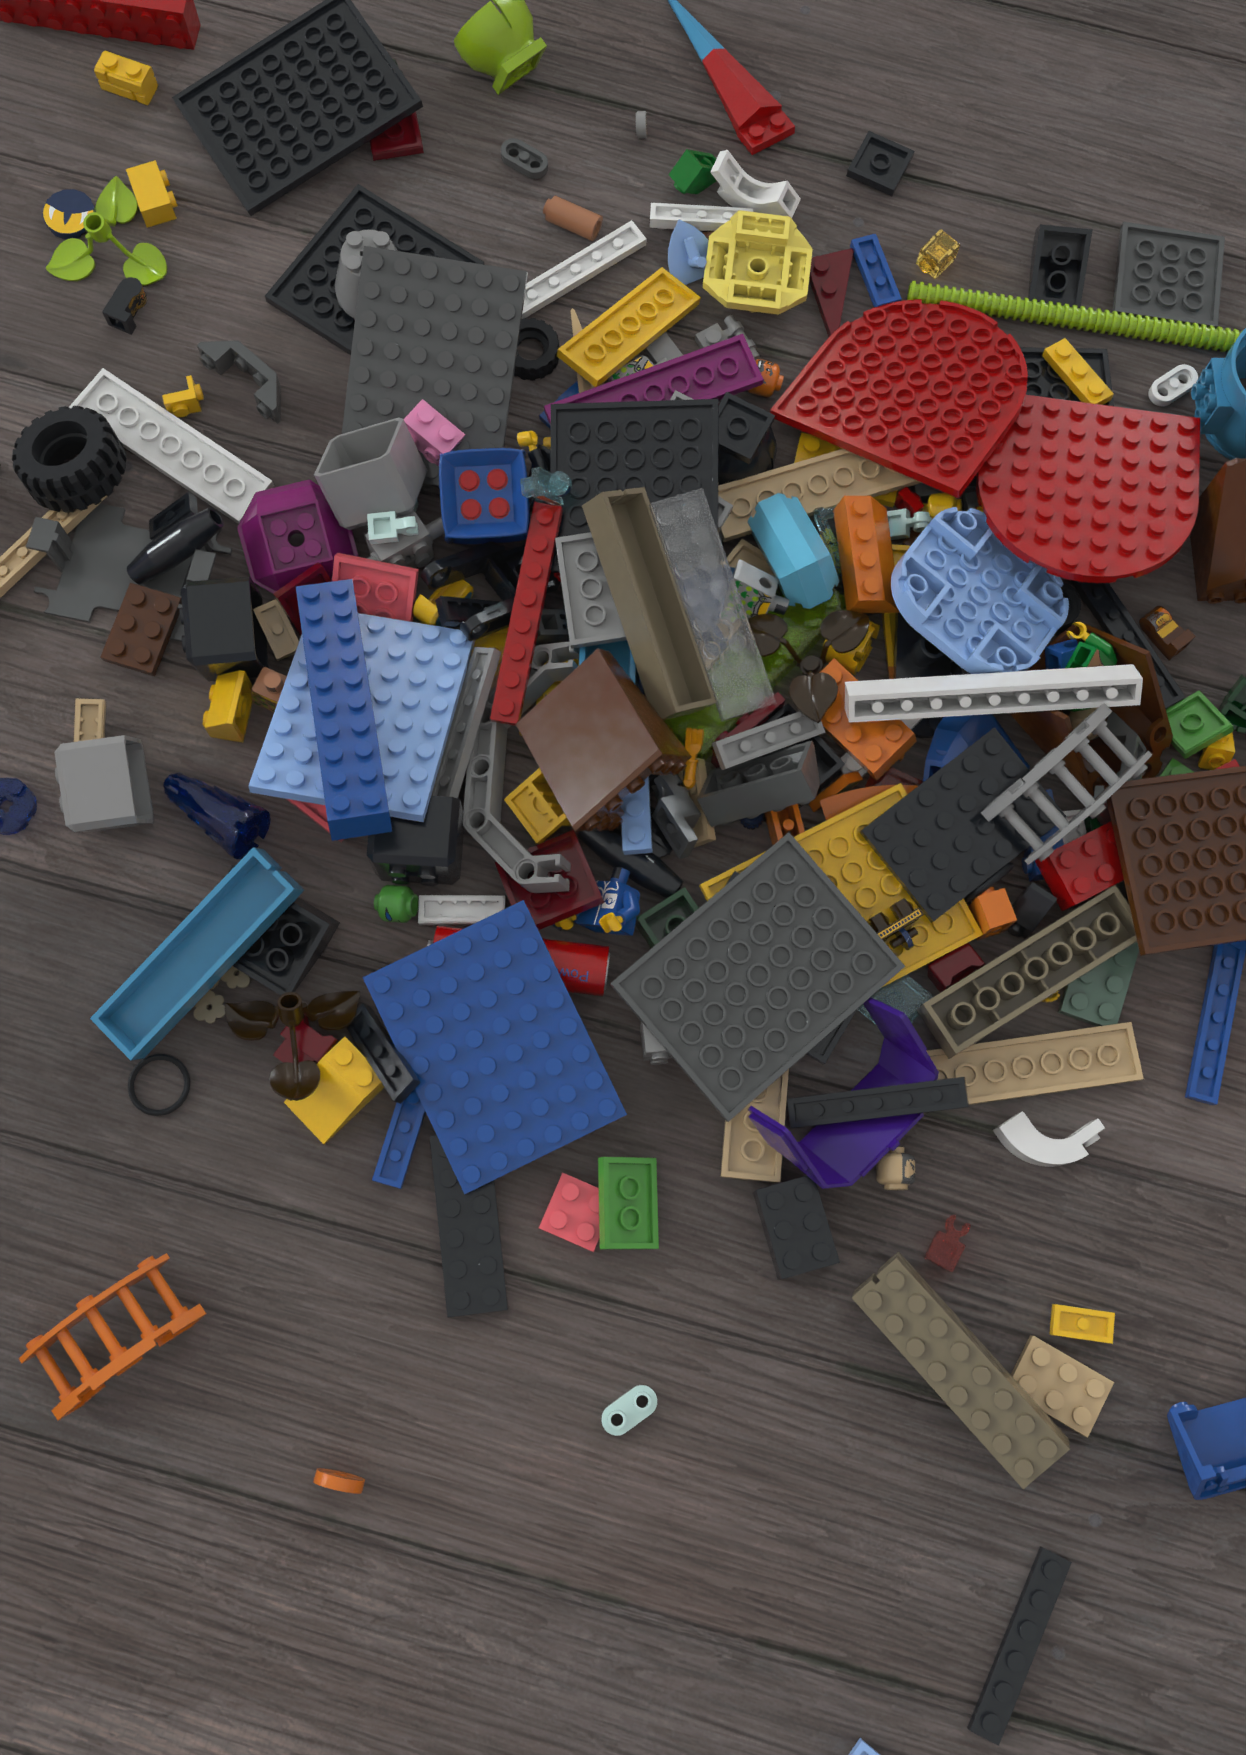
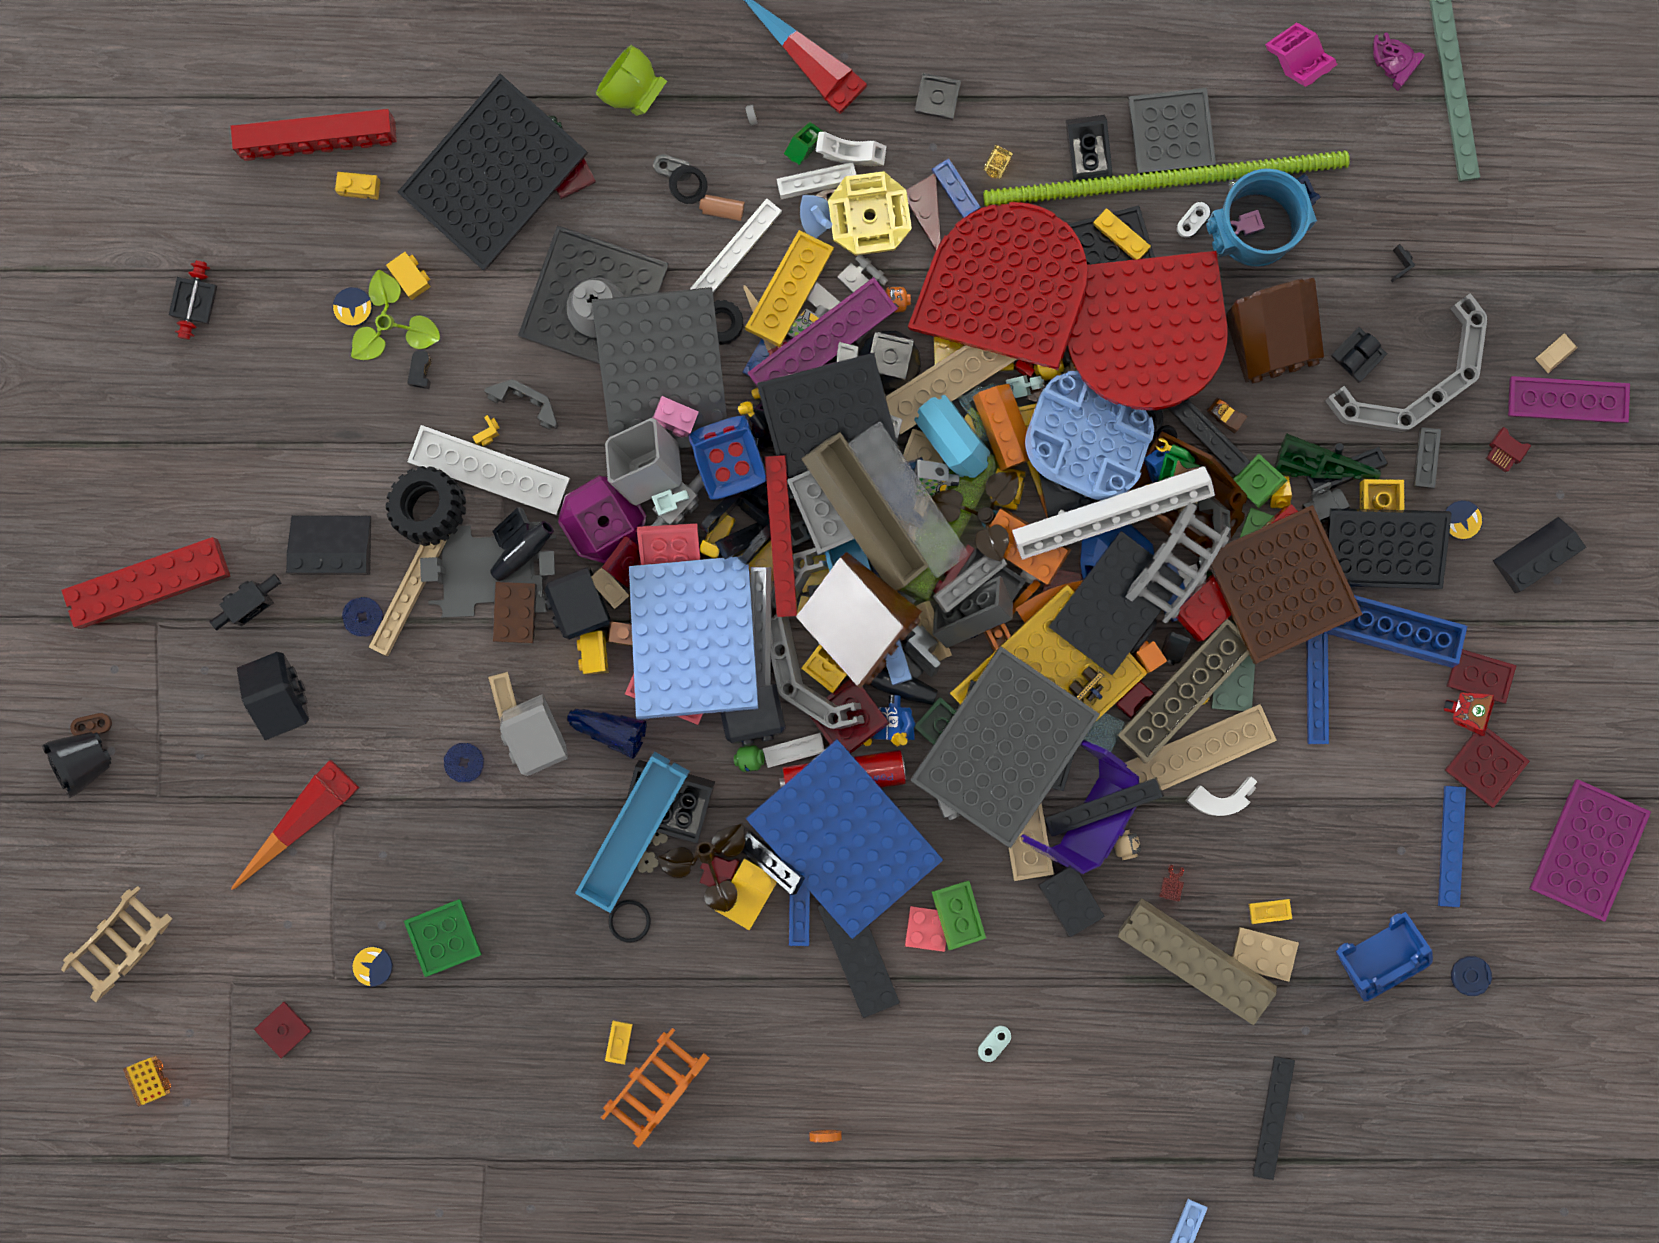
camera: 10 degrees left, 10 degrees up
(84, 1254) = (618, 1042): none -> yellow plate
(342, 711) = (680, 644): blue brick -> none
(546, 486) = (772, 448): clear light blue hips -> none
(555, 169) = (703, 184): none -> black tyre
(693, 745) = (919, 596): light orange piece -> none

